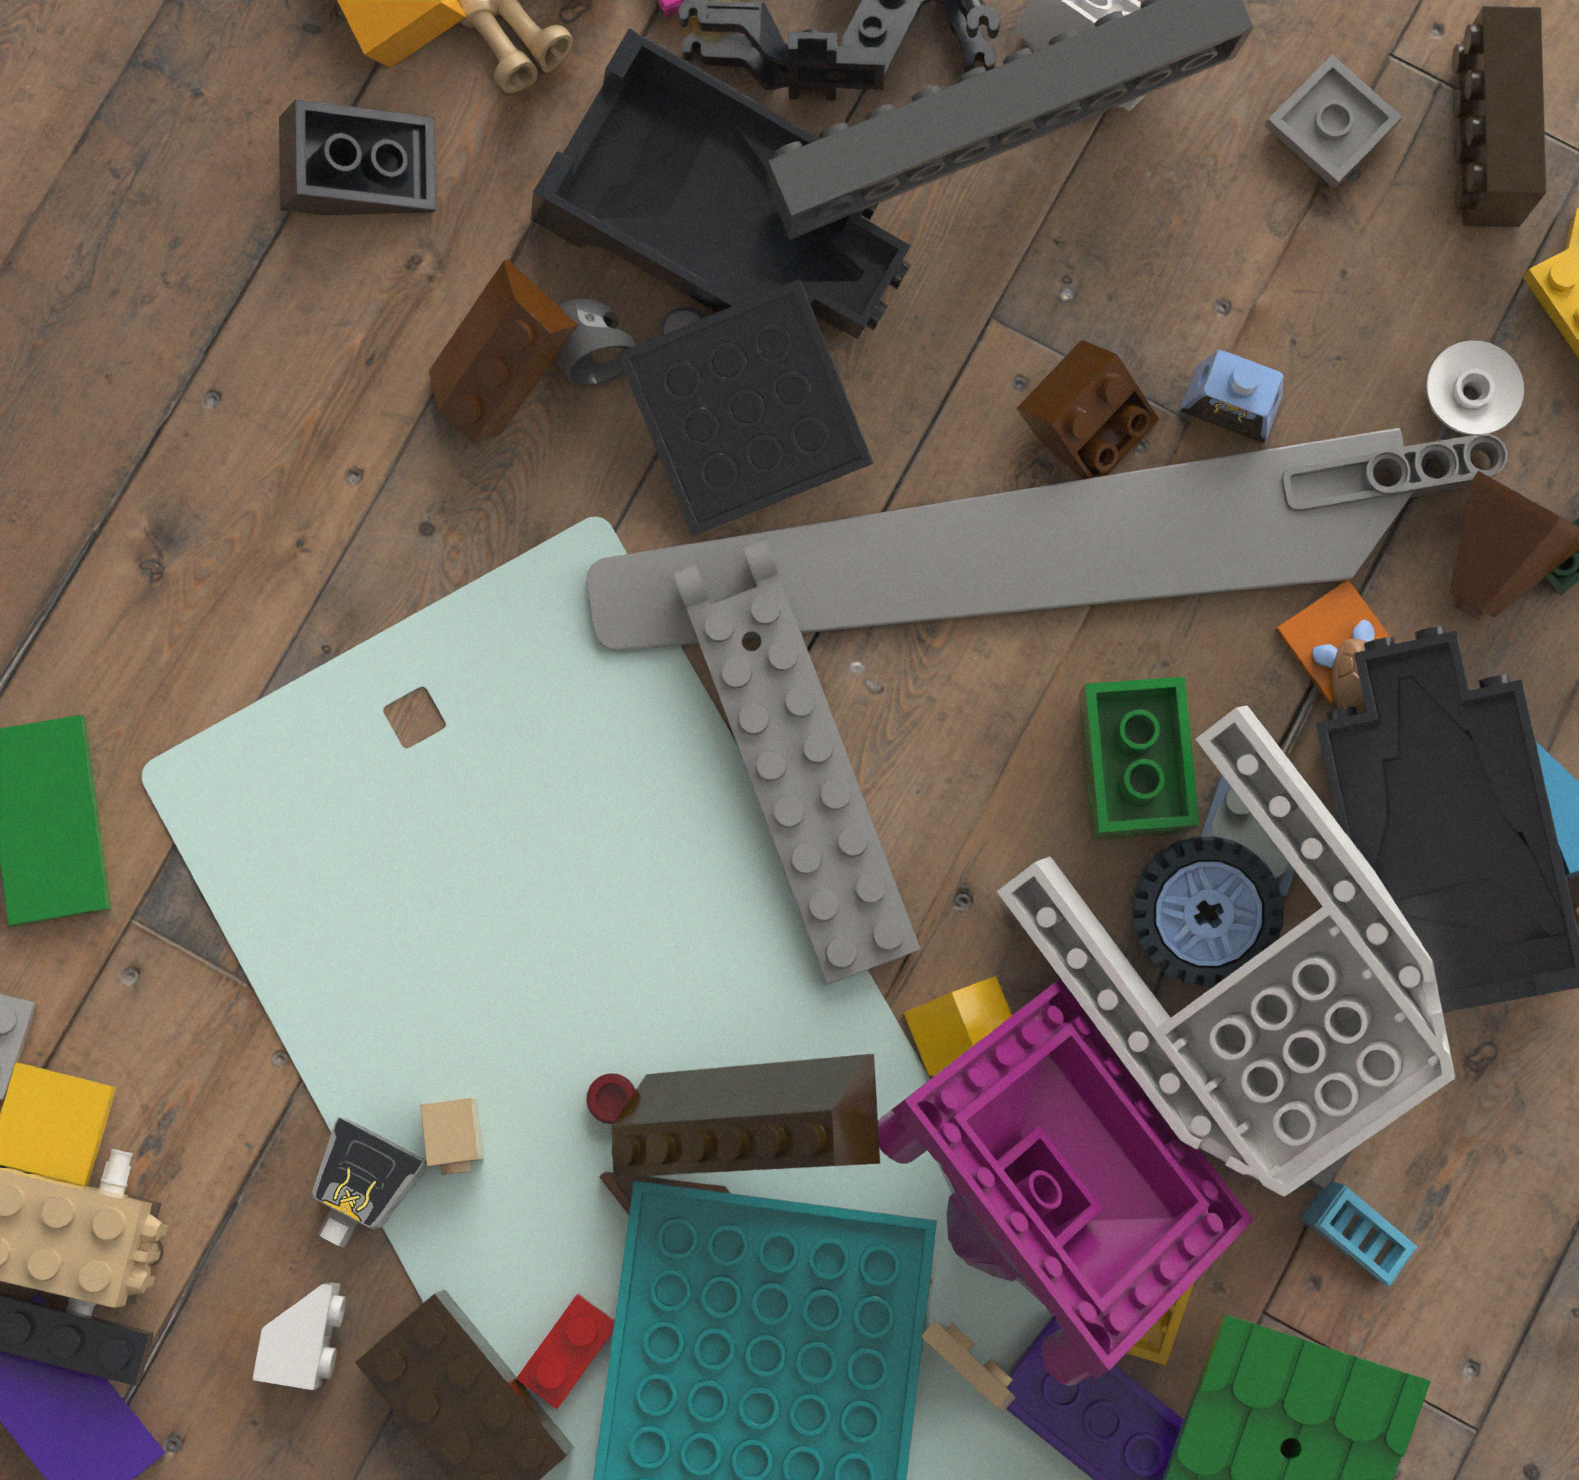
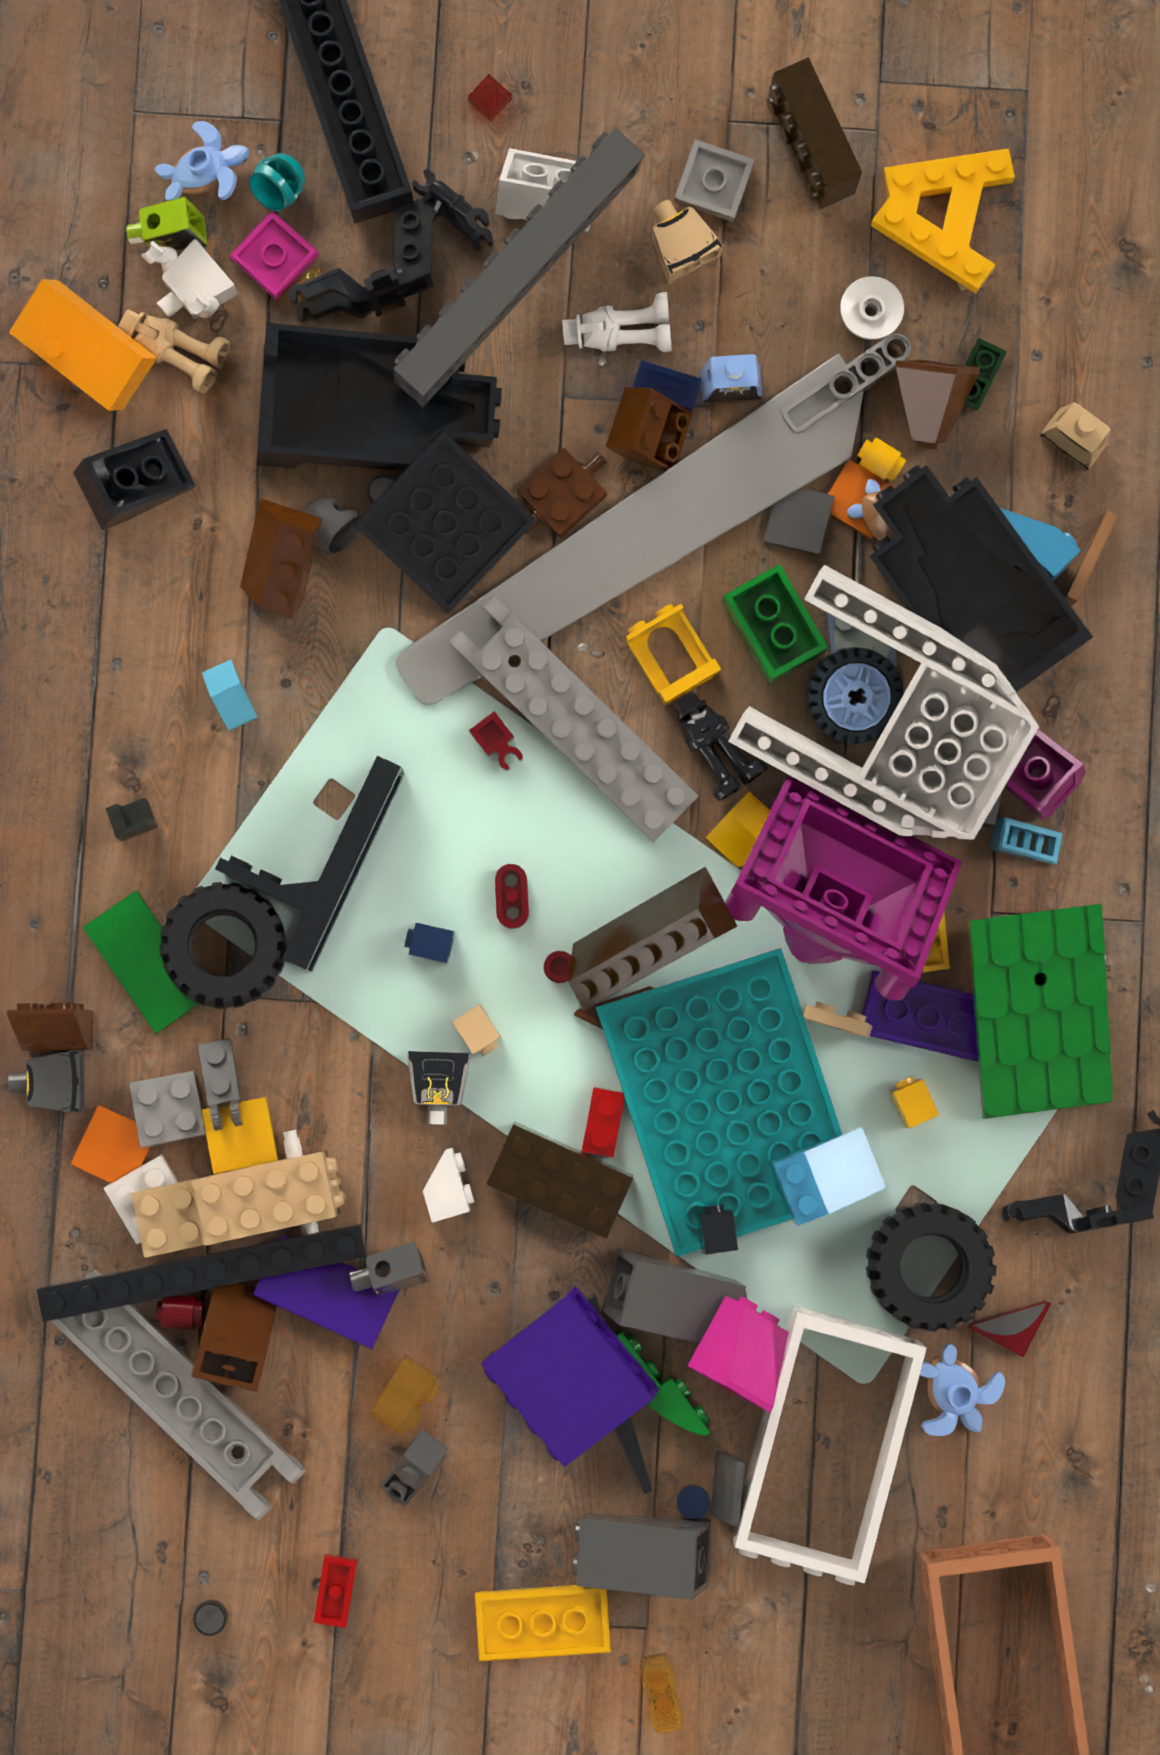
camera: 30 degrees left, 5 degrees up
(62, 1036) = (221, 1080): none -> hinge
(104, 804) = (203, 905): none -> black tyre
(123, 615) = (131, 819): none -> pearl dark grey panel
(184, 1425) = (406, 1270): none -> dark grey torso
(329, 848) = (325, 898): none -> black piece
(340, 509) = (229, 695): none -> medium azure slope
(446, 978) = (430, 942): none -> dark blue brick
(589, 966) = (511, 896): none -> dark red plate
(672, 734) = (494, 737): none -> dark red plate
(929, 444) = (563, 491): none -> reddish brown plate
(970, 861) = (703, 730): none -> black piece
(1004, 690) = (674, 619): none -> yellow panel
(1086, 252) = (602, 327): none -> white piece
(1150, 367) = (671, 383): none -> clear blue plate
(1240, 633) = (800, 521): none -> dark grey piece
(1253, 182) = (683, 241): none -> tan torso
(1394, 599) = (881, 459): none -> yellow brick
(1429, 1153) = (1045, 776): none -> magenta slope

